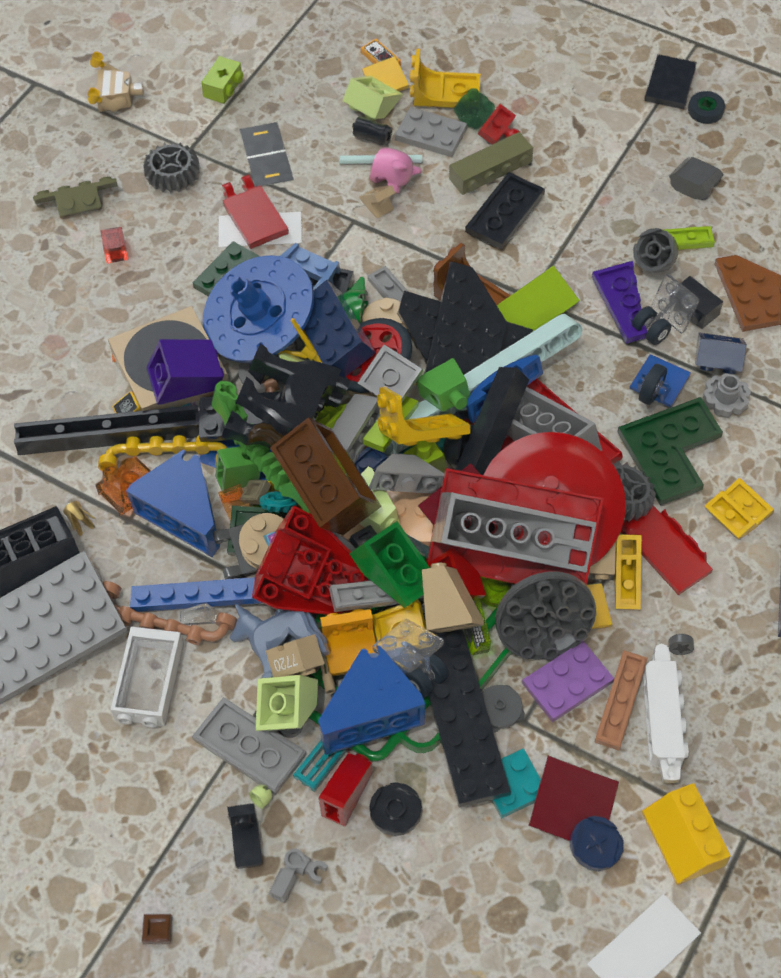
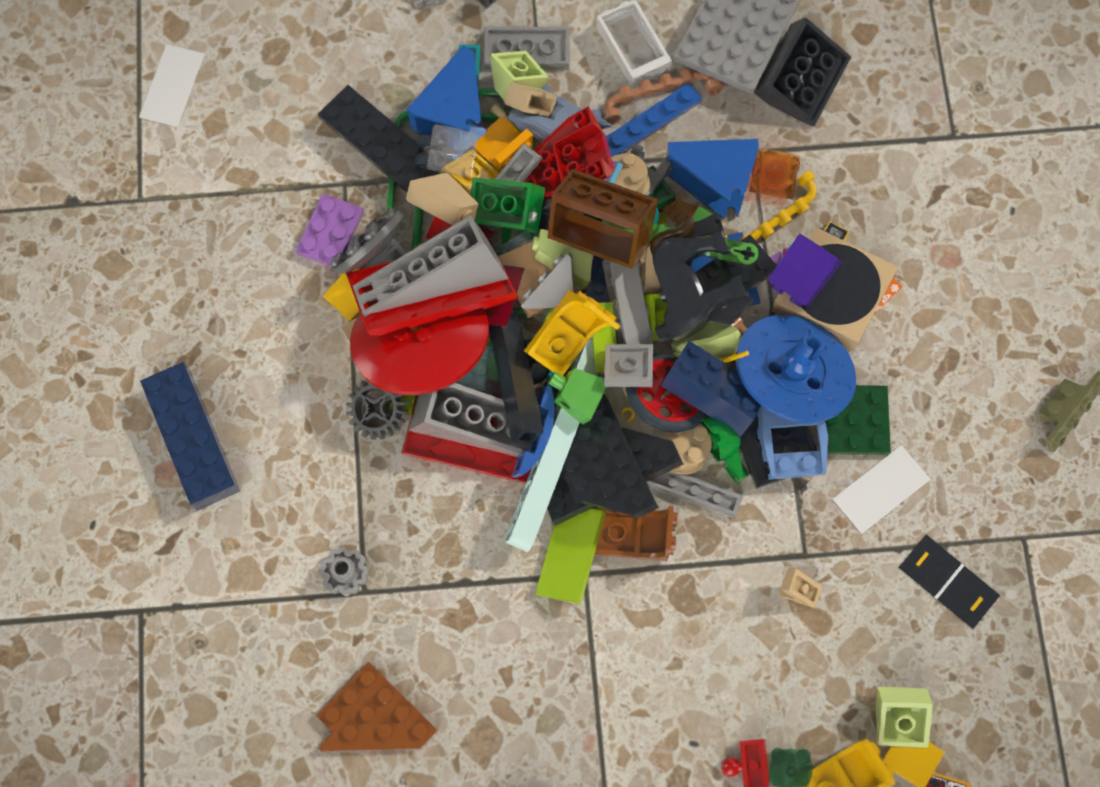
camera: 145 degrees right, 15 degrees up
(74, 512) = (793, 124): pearl gold piece -> none
(105, 429) = (834, 200): black tile -> none
(114, 245) = (988, 378): clear red brick -> none
(171, 162) = (1018, 479): dark grey gear -> none
(222, 79) = (1069, 626): lime brick -> none
(253, 213) = (899, 498): tile -> none
(254, 491) = (669, 218): dark tan tile -> none
(260, 796) = (491, 17): yellowish green hinge -> none
(345, 788) = (433, 44): red slope -> none
(368, 159) = (836, 646): light aqua bar -> none
(371, 130) = (873, 670): black piece -> none
(394, 167) = (807, 630): bright pink piece -> none
(395, 809) = (394, 68): black tile -> none
(431, 131) = (815, 716): light grey plate -> none
(478, 637) = (415, 215): clear neon green slope -> none
(490, 163) = (725, 706): olive brick -> none
(503, 706) = (367, 181): dark grey piece -> none
(505, 210) = (672, 657): black plate -> none
(522, 781) = (319, 137): teal plate -> none
(569, 796) = (272, 144): dark red sticker -> none
(596, 843) = (240, 126): dark blue tile -> none
(620, 293) = (501, 624): dark purple wing -> none
(621, 700) = (282, 242): nougat tile -> none
(628, 572) = (334, 344): yellow slope -> none
(655, 250) = (493, 688): dark grey cylinder -> none
(659, 381) = (411, 545): blue plate -> none
(660, 442) = (377, 485): dark green plate -> none
(663, 715) = (243, 245): white hinge -> none
(669, 549) = (314, 388): red piece -> none
(674, 309) = (443, 600): clear plate -> none
(681, 644) = (259, 308): dark grey tile -> none
(686, 834) = (179, 168): yellow slope -> none
(693, 237) = (486, 737): lime tile -> none
(708, 306) = (426, 658): black brick -> none
(720, 352) = (374, 616): slope -> none
(739, 508) = (275, 462): yellow slope -> none

